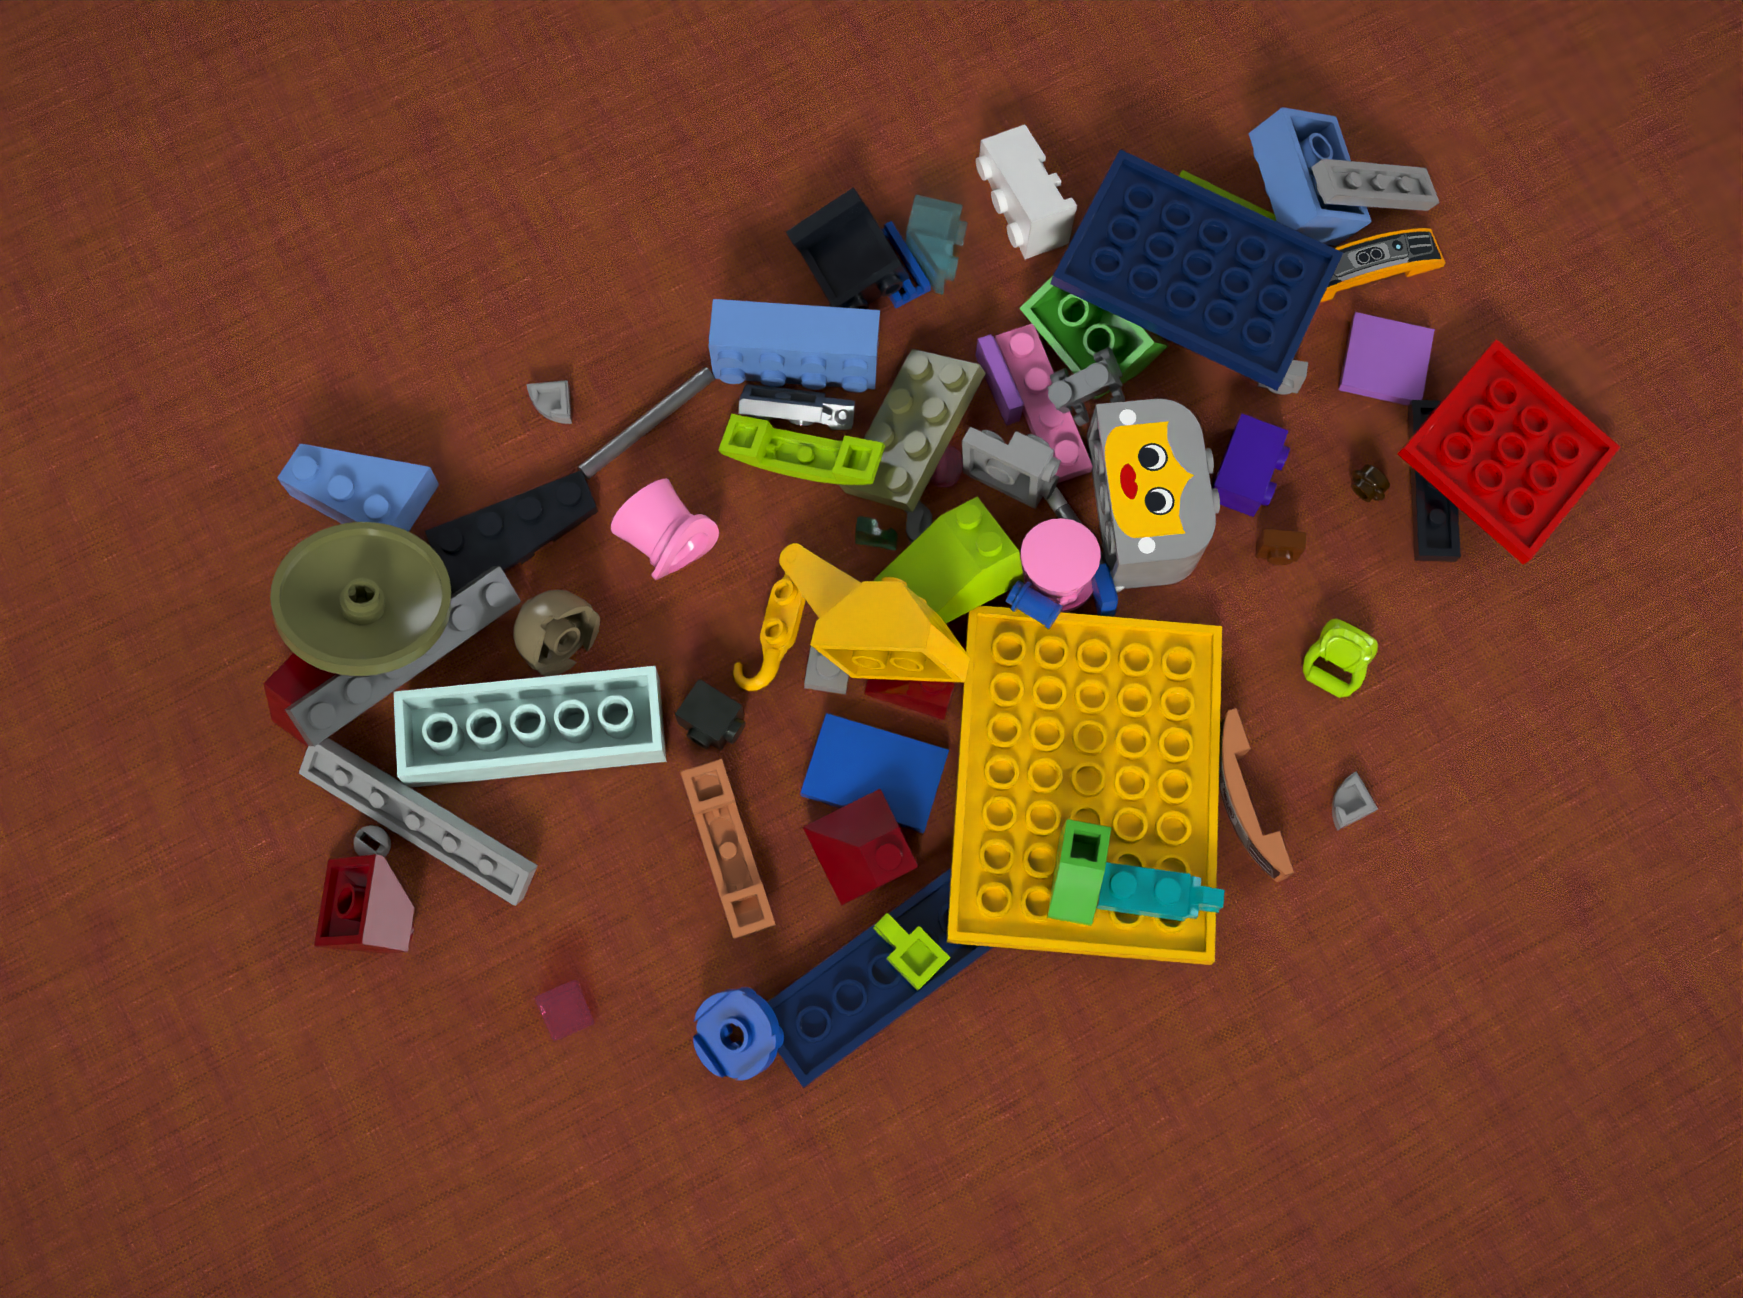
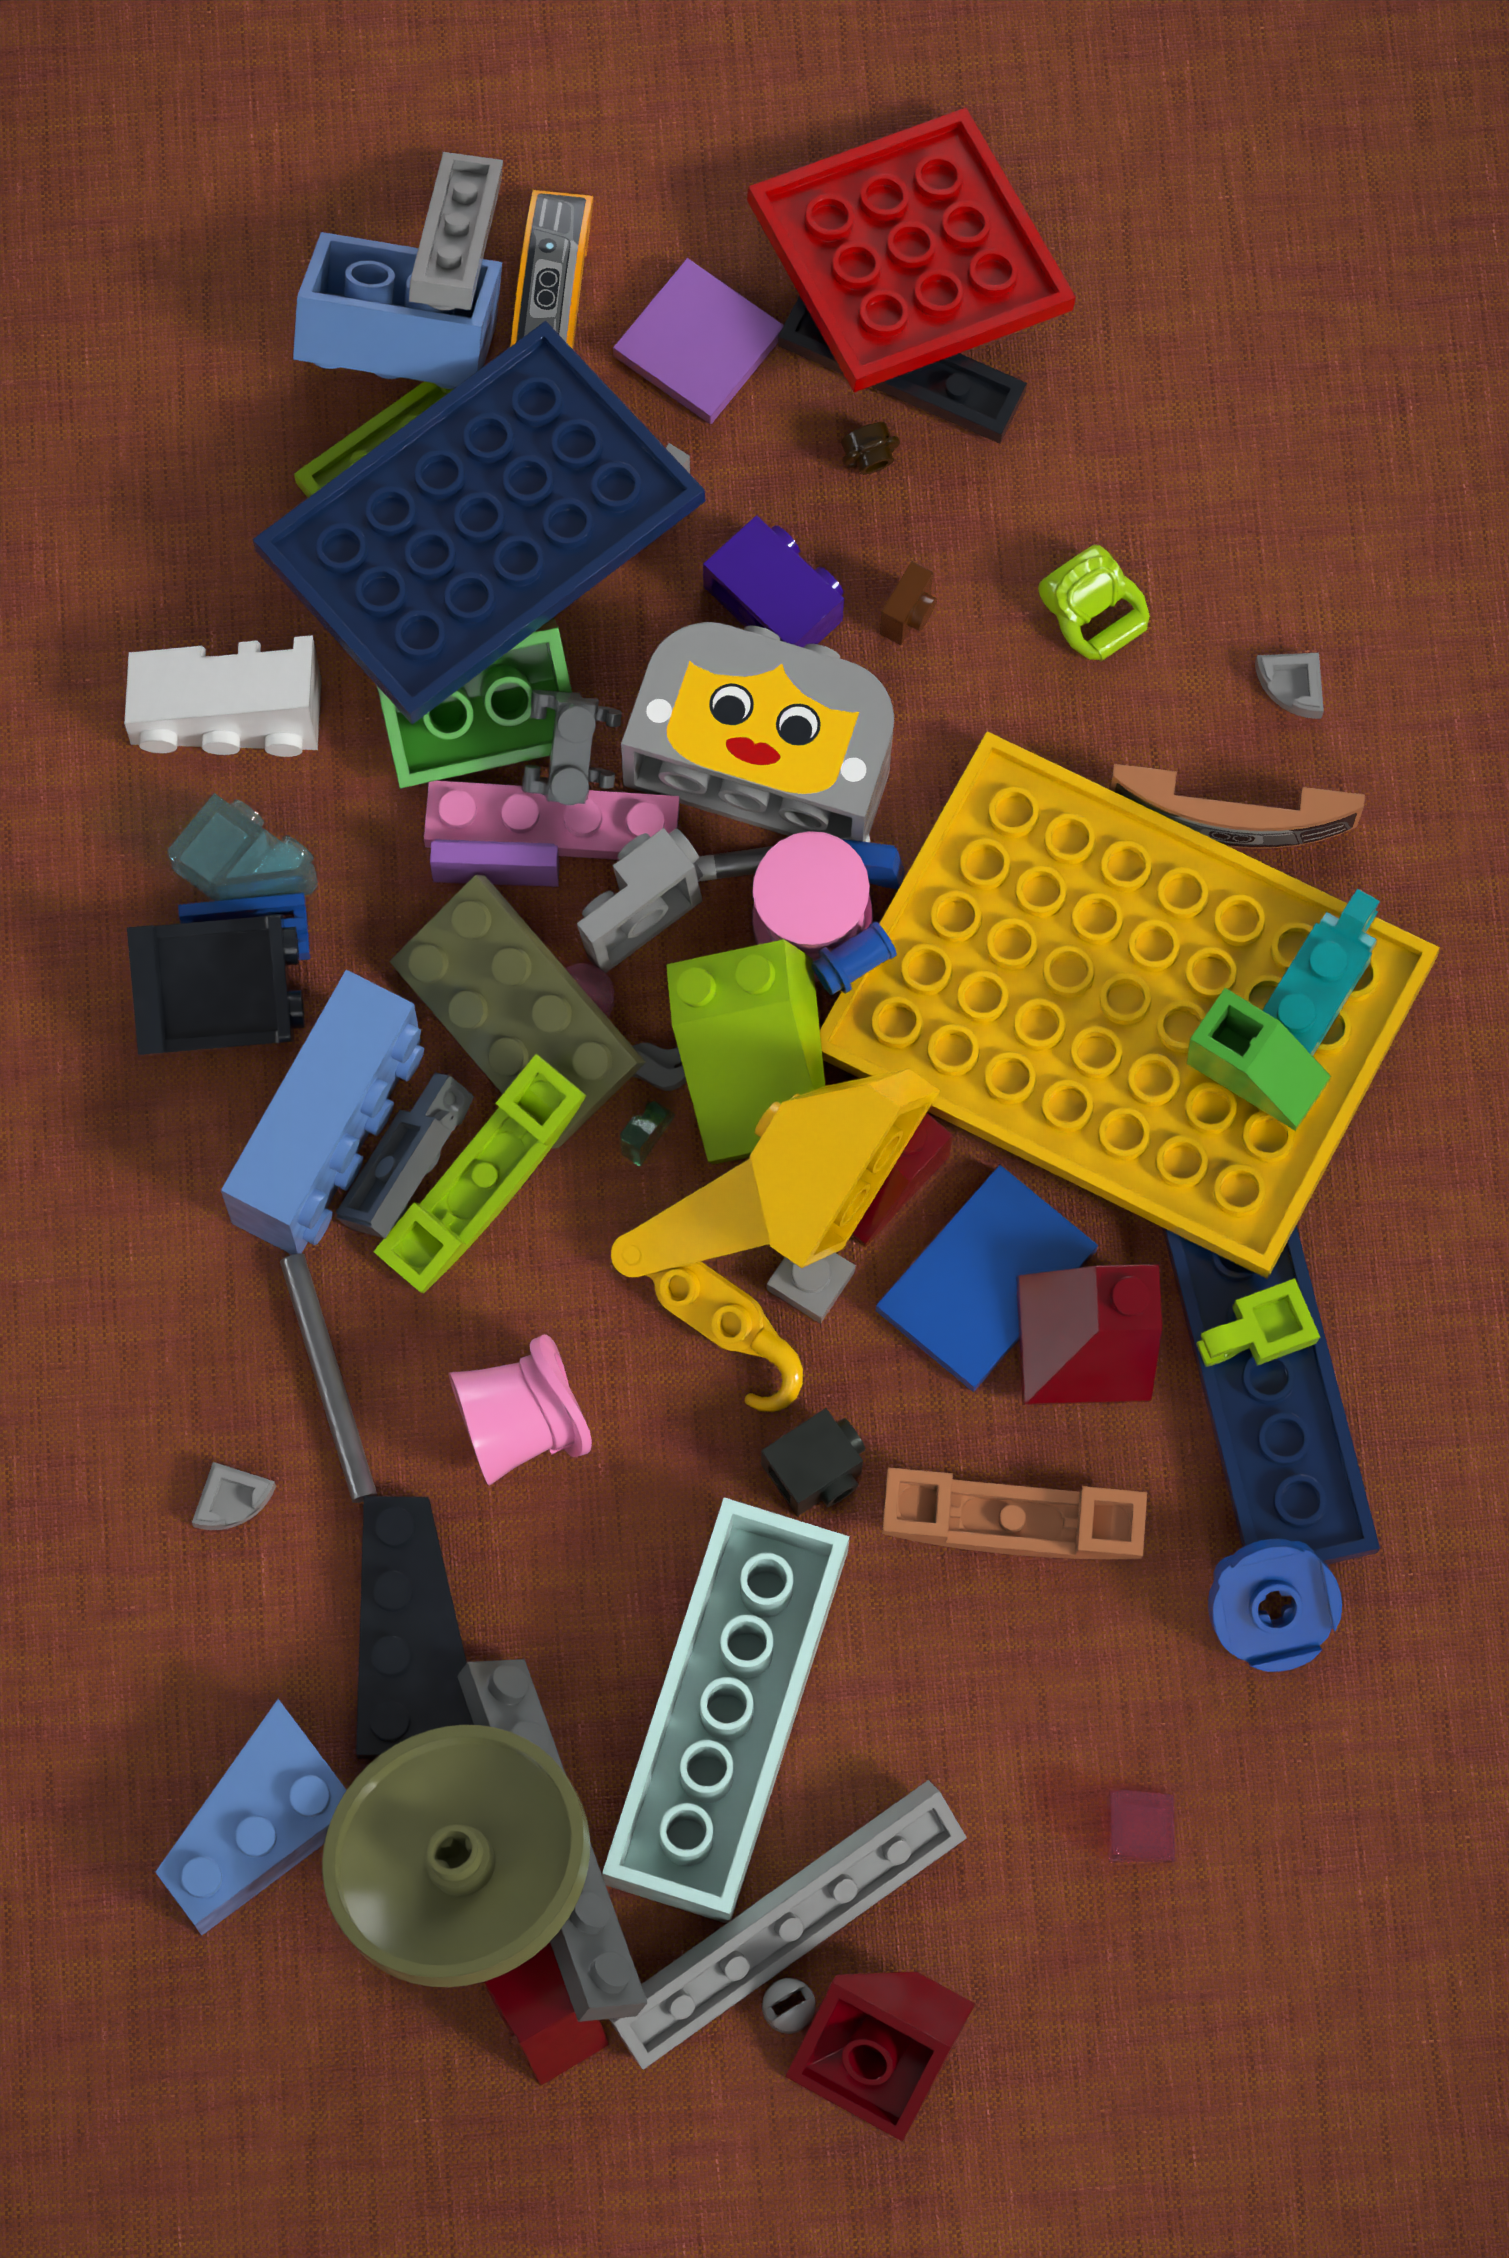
camera: 65 degrees left, 0 degrees up
(553, 629) = (592, 1626): dark tan cylinder -> none

